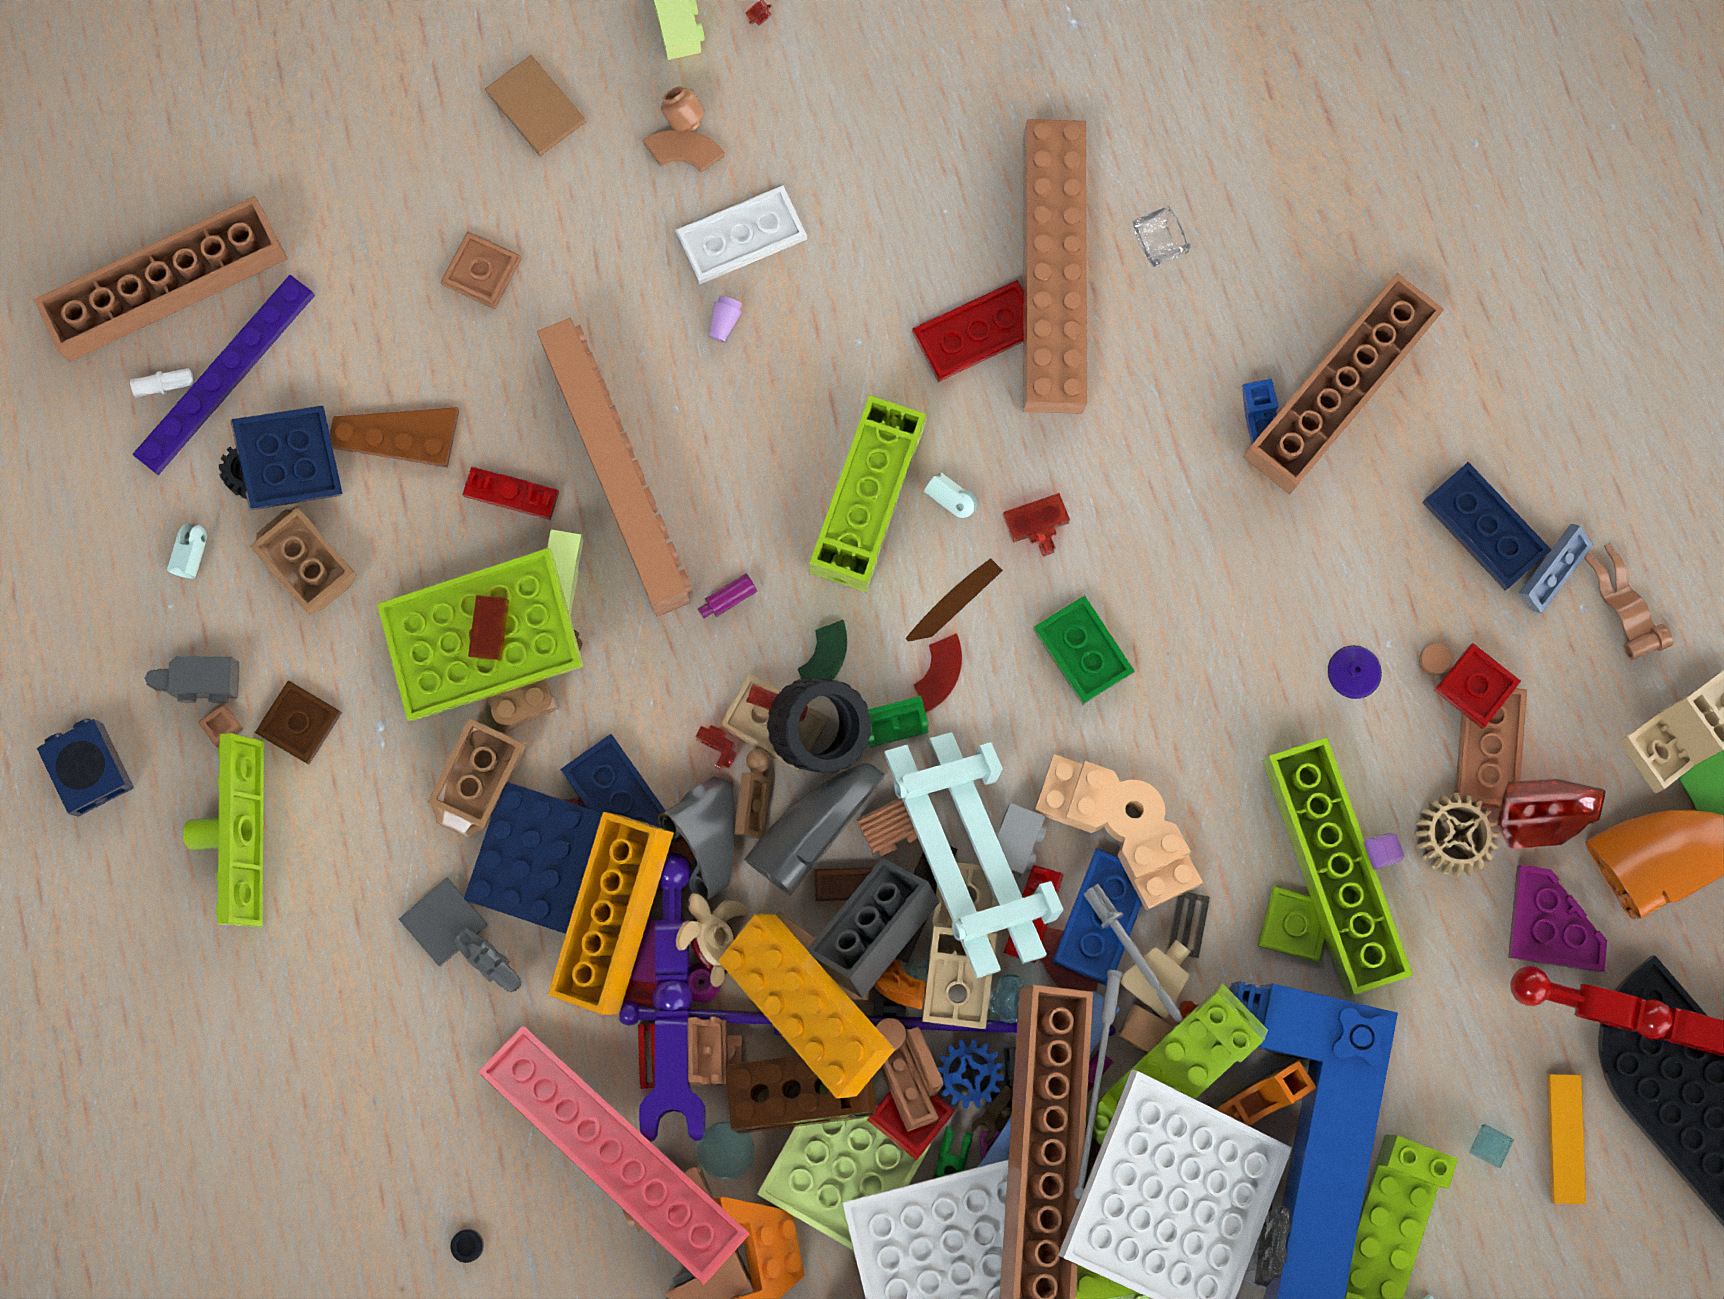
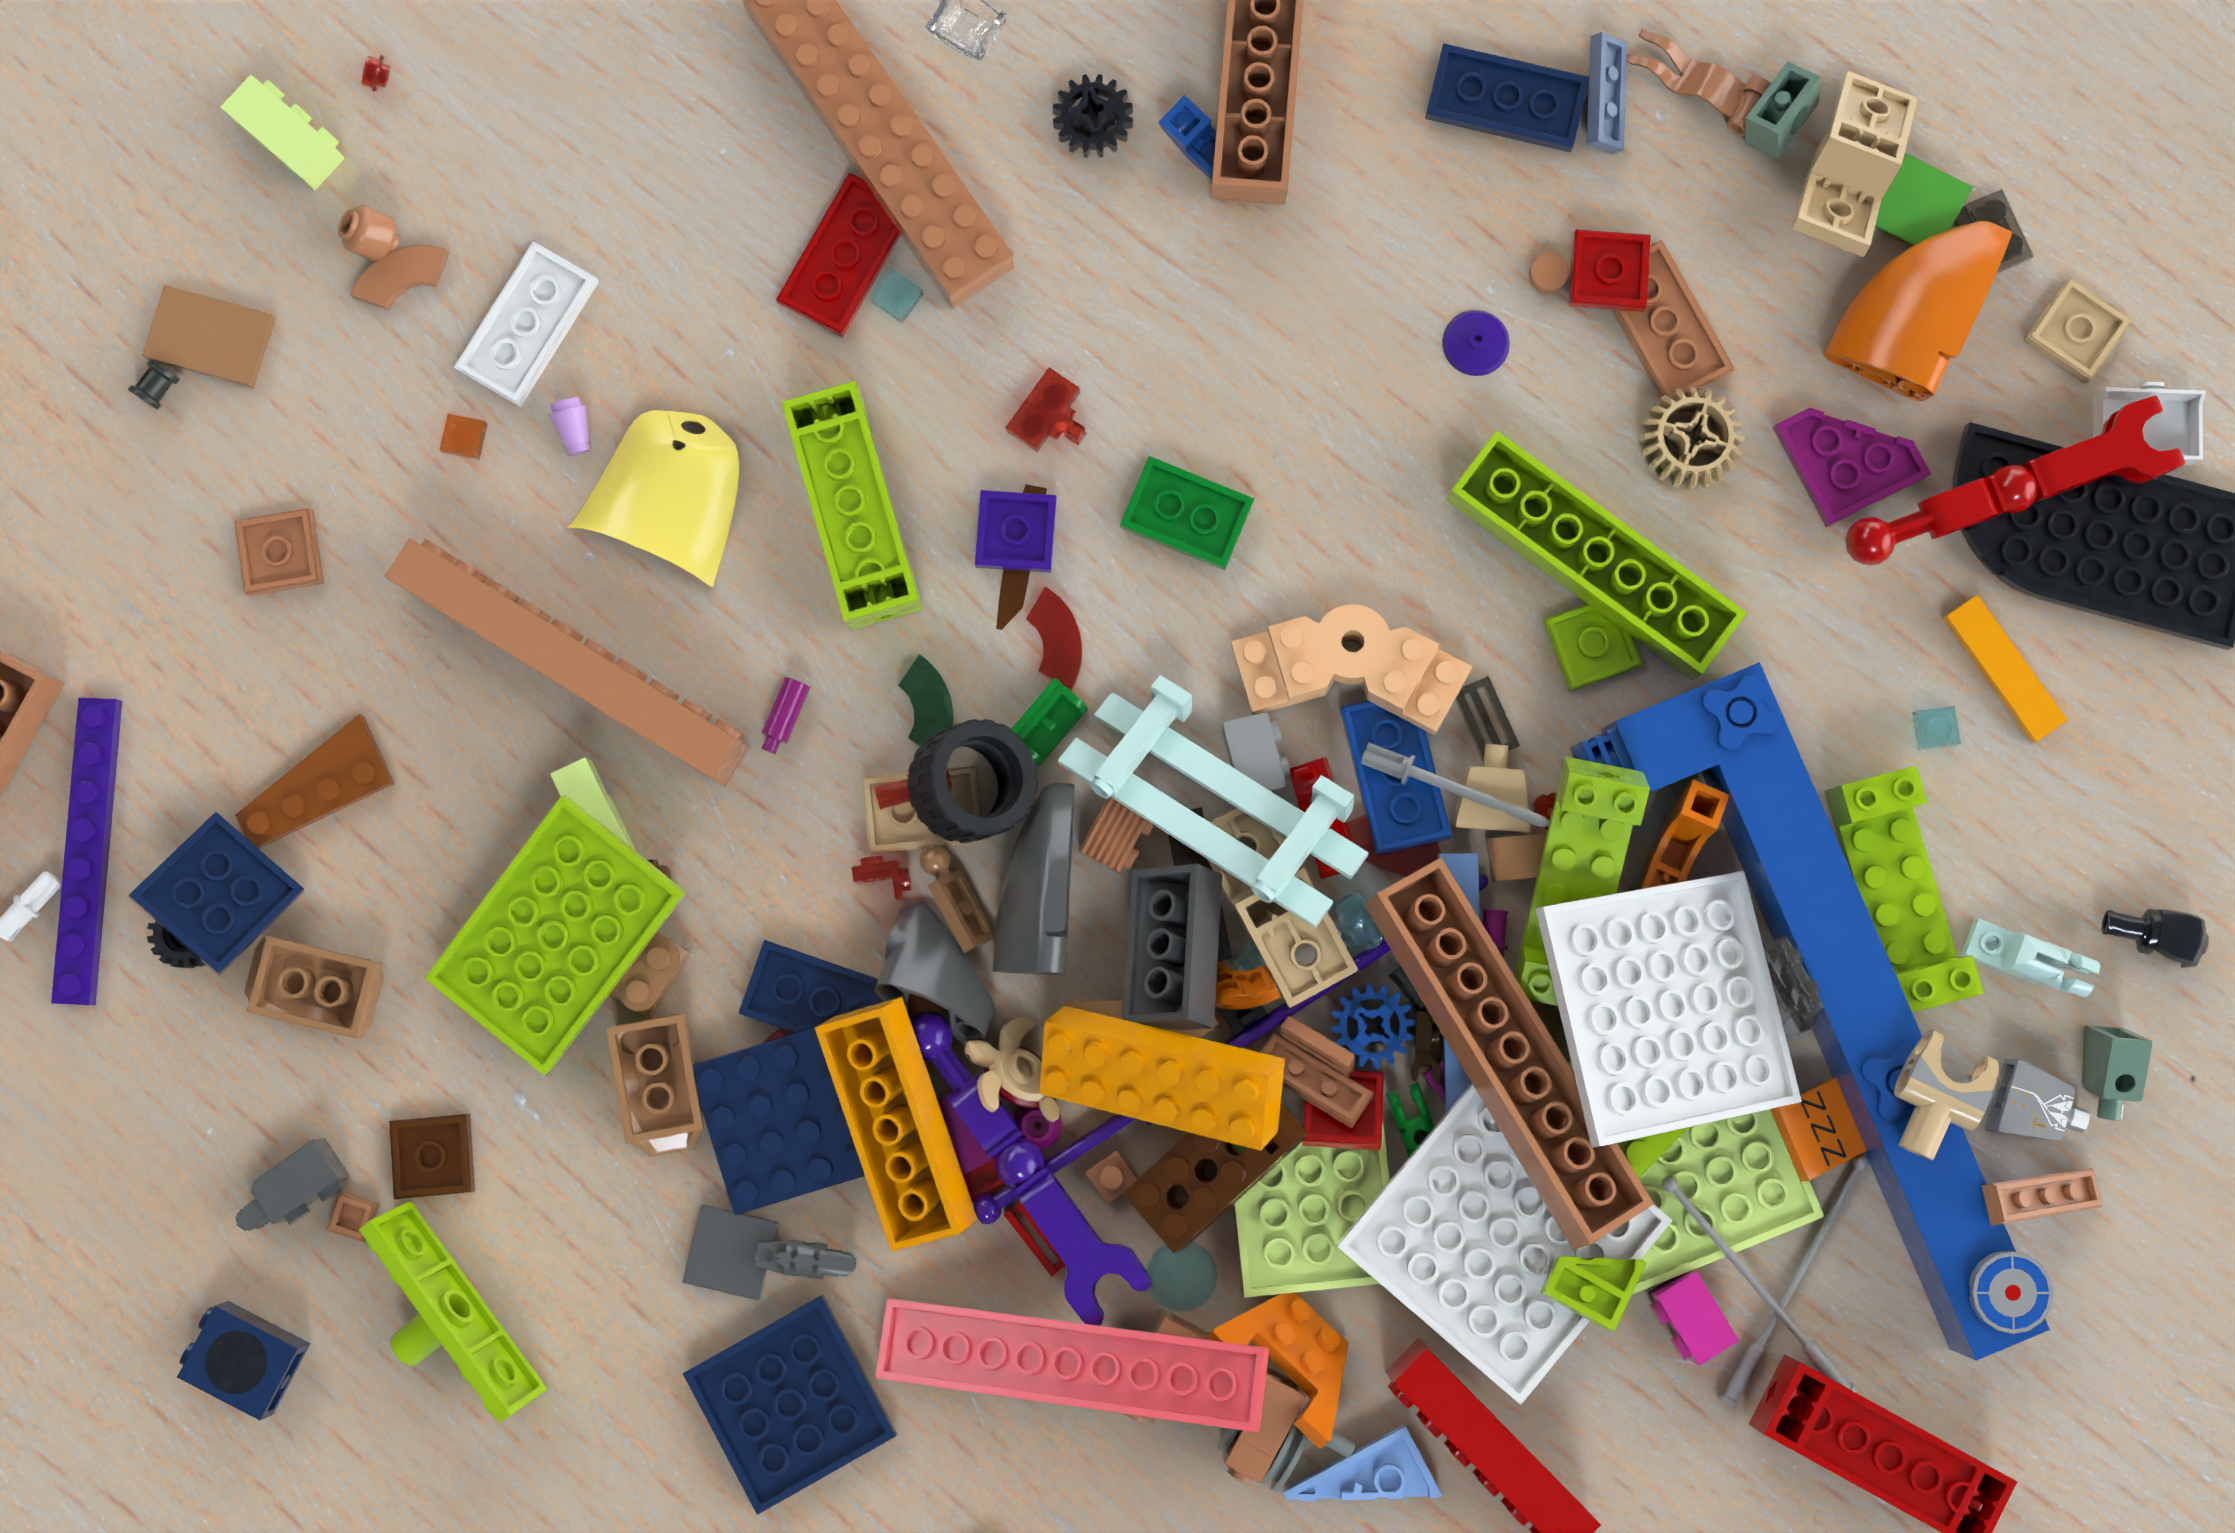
camera: 25 degrees left, 5 degrees up
(187, 551) = (185, 1062): light aqua piece -> none
(410, 1049) = (790, 1404): none -> dark blue plate
(479, 111) = (153, 384): none -> pearl dark grey bush
(488, 628) = (559, 922): clear red tile -> none
(510, 493) = (480, 764): red plate -> none
(650, 277) = (463, 436): none -> clear orange tile
(707, 1051) = (1093, 1192): nougat hinge -> none
(752, 406) = (667, 497): none -> light yellow piece
(838, 883) = (1106, 926): reddish brown tile -> none
(893, 1031) = (1266, 1040): nougat tile -> none
(951, 496) = (940, 448): light aqua piece -> none
(962, 584) = (1015, 531): none -> dark purple plate
(992, 379) = (897, 295): none -> clear light blue tile
(1107, 1018) = (1473, 873): light grey piece -> none
(1190, 346) = (1079, 121): none -> black gear
(1384, 850) = (1631, 505): medium lavender tile -> none
(1547, 812) = (1767, 350): clear red wedge -> none
(1667, 660) = (1782, 110): none -> sand green brick

